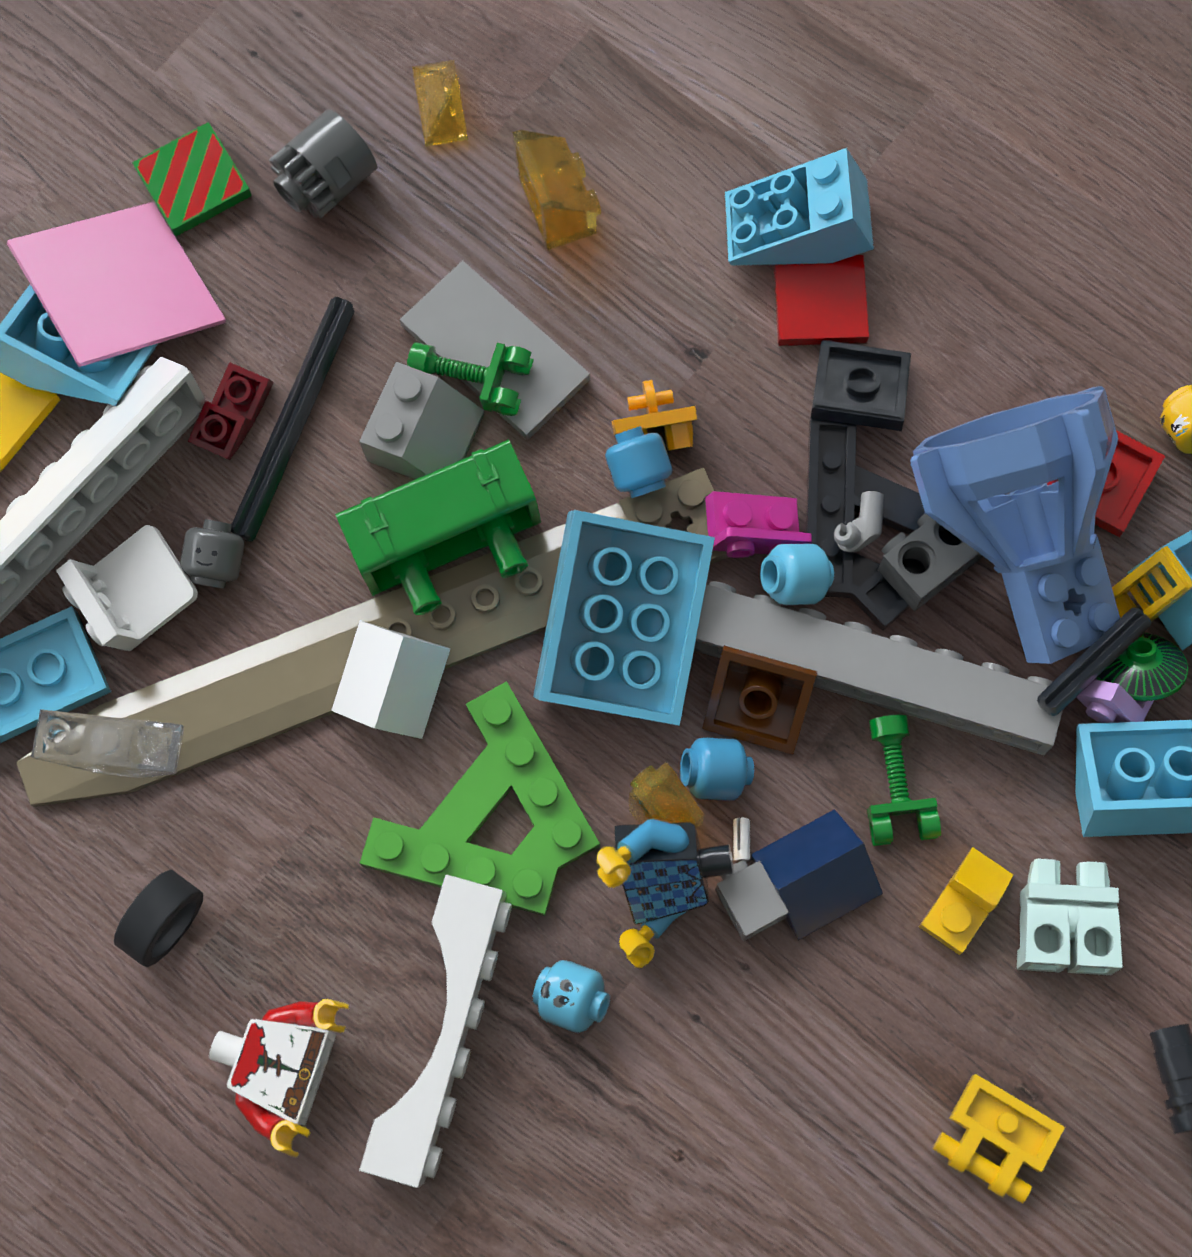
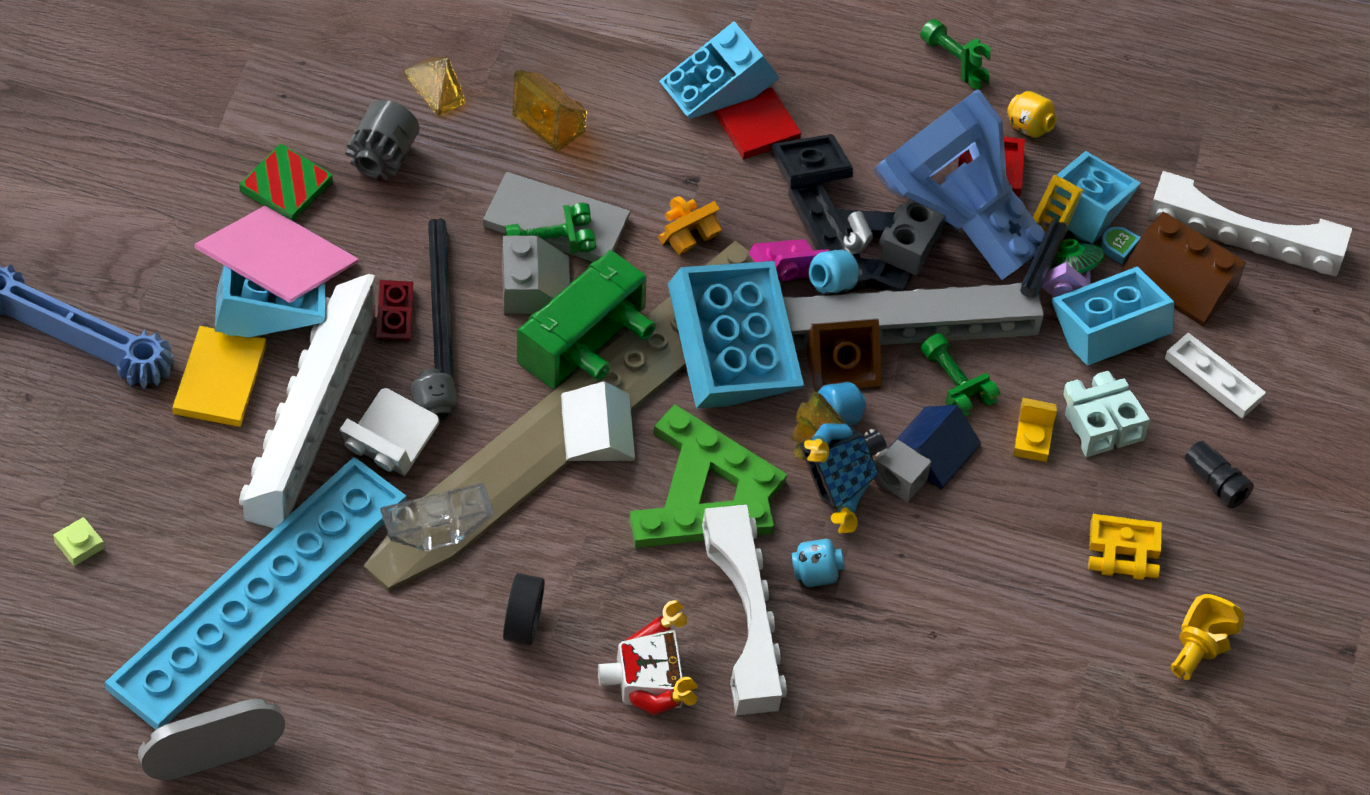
camera: 35 degrees left, 20 degrees down
(638, 462) = (696, 243): dark azure head -> none
(1121, 249) = (935, 34): none -> green bar

